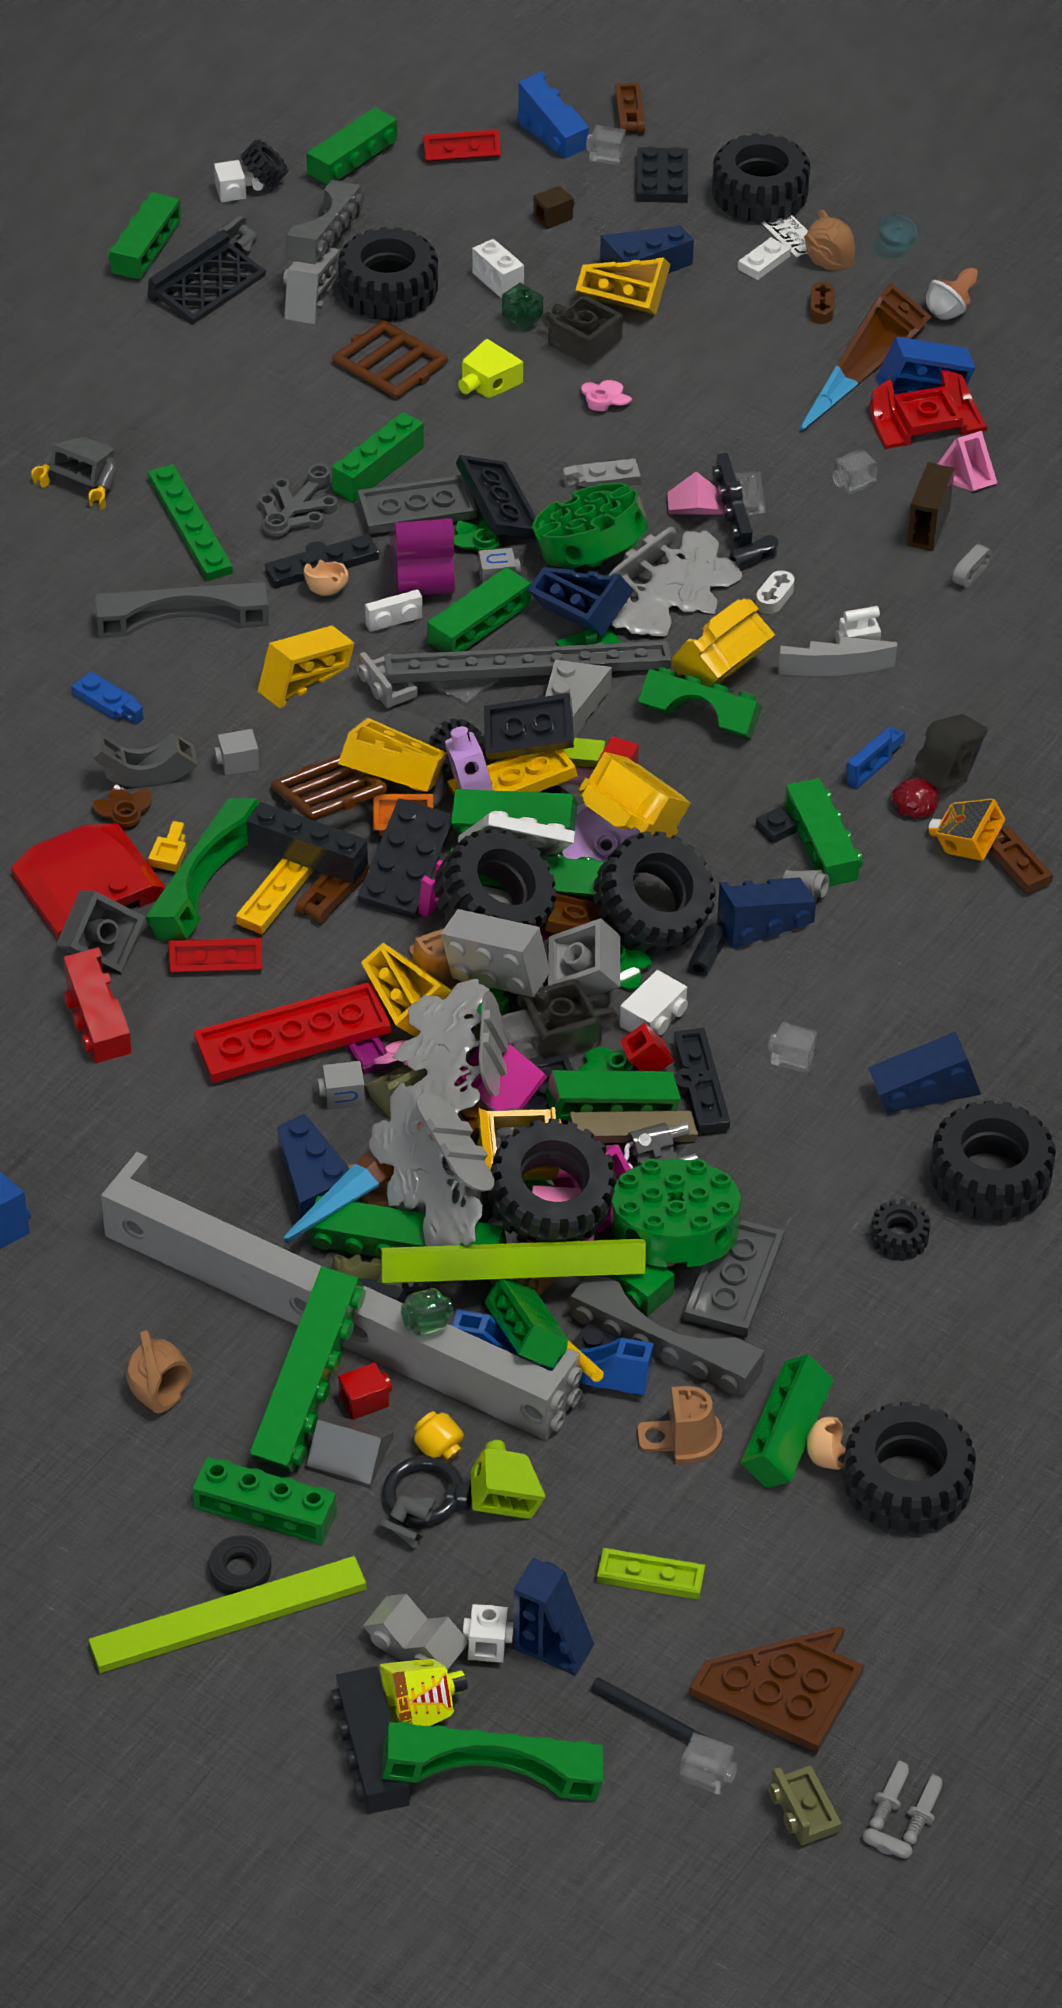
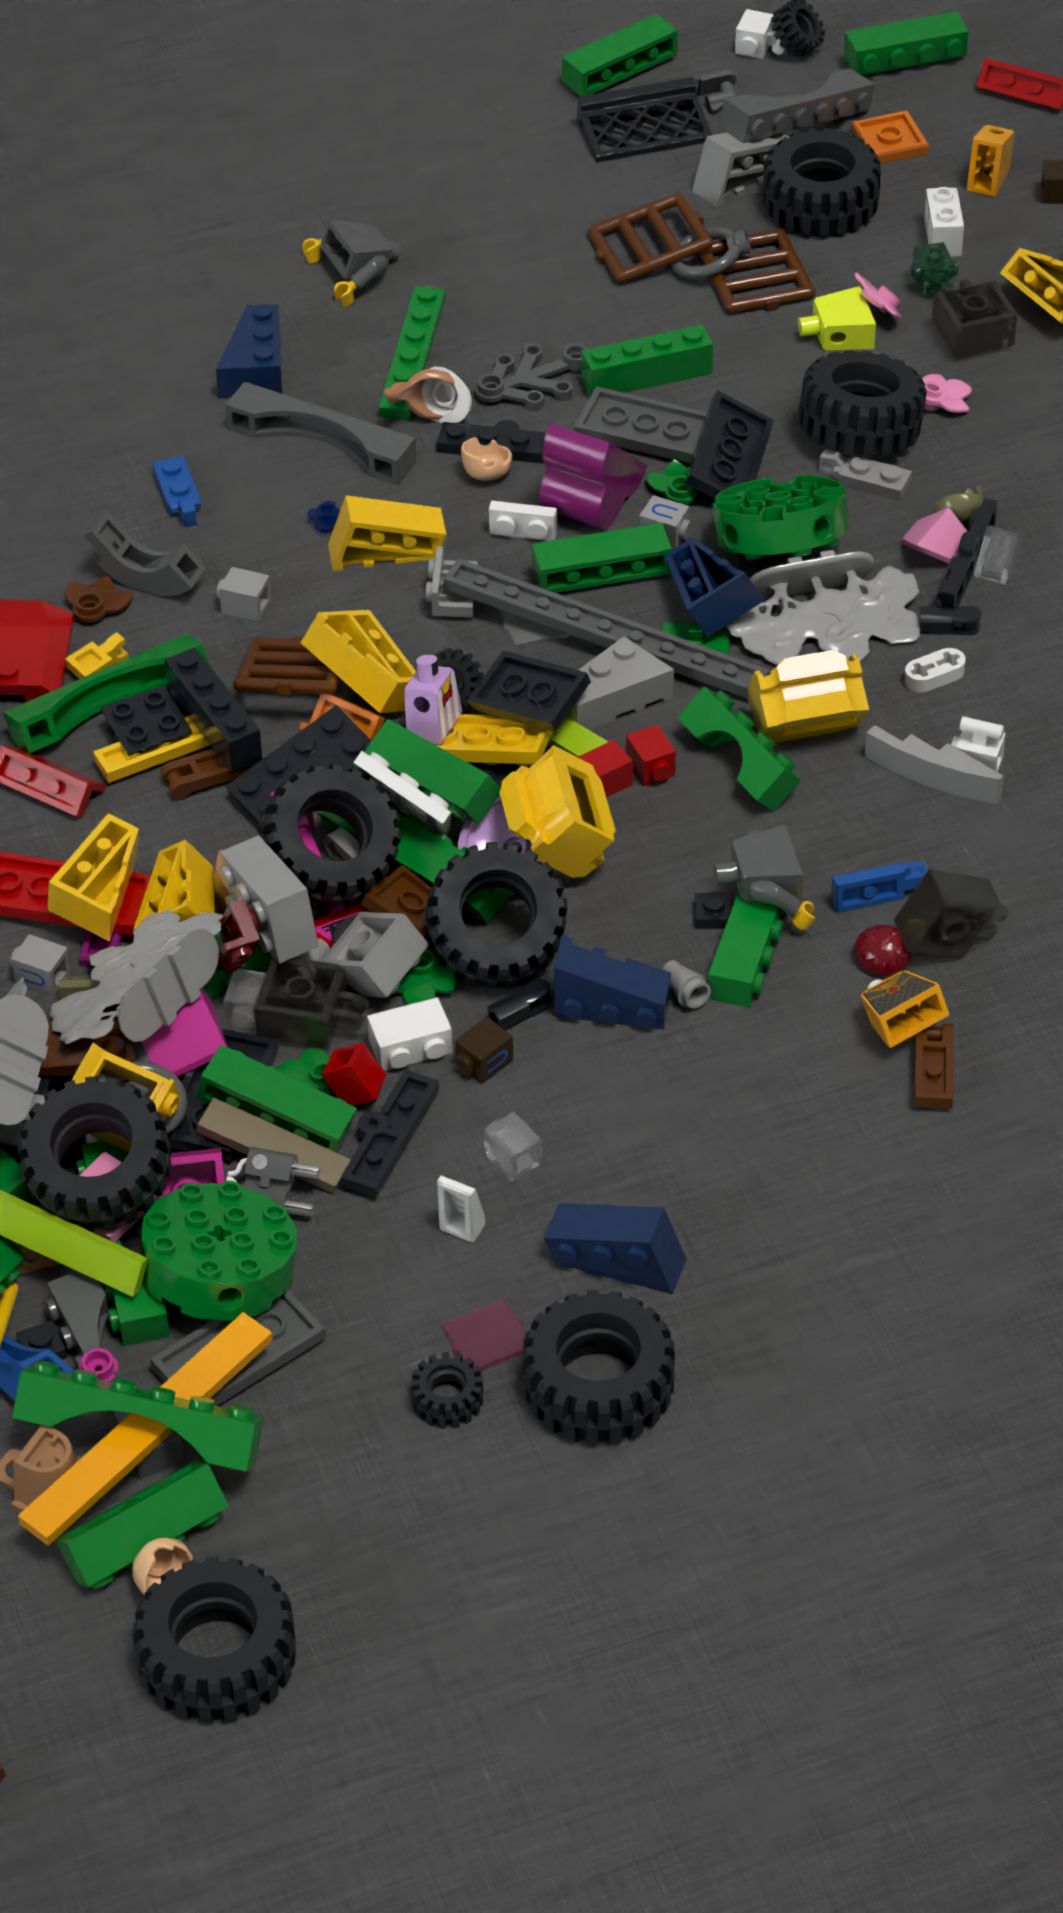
camera: 35 degrees right, 0 degrees up
(78, 570) = (252, 352): none -> dark blue wedge
(242, 670) = (324, 516): none -> clear blue plate
(250, 544) = (433, 395): none -> piece
(254, 876) = (145, 720): none -> black hinge
(308, 385) = (647, 263): none -> reddish brown bar
(345, 1001) = (96, 877): none -> yellow wedge
(367, 343) = (737, 243): none -> dark grey piece
(397, 214) = (892, 136): none -> orange tile
(492, 202) = (993, 151): none -> light orange torso
(502, 983) = (238, 935): none -> dark red bracket
(504, 341) = (881, 298): none -> bright pink plate
(569, 422) = (862, 403): none -> black tyre
(643, 732) = (651, 755): none -> red brick
(670, 1325) = (100, 1359): none -> dark pink plate
(671, 1362) = (217, 1433): none -> green arch
(700, 462) = (961, 503): none -> olive hair
(714, 992) = (483, 1050): none -> dark brown brick
(737, 1356) = (139, 1435): none -> light orange tile
(804, 1105) = (459, 1209): none -> white slope
(808, 776) = (767, 872): none -> dark grey torso
(887, 1180) = (487, 1335): none -> clear pink piece

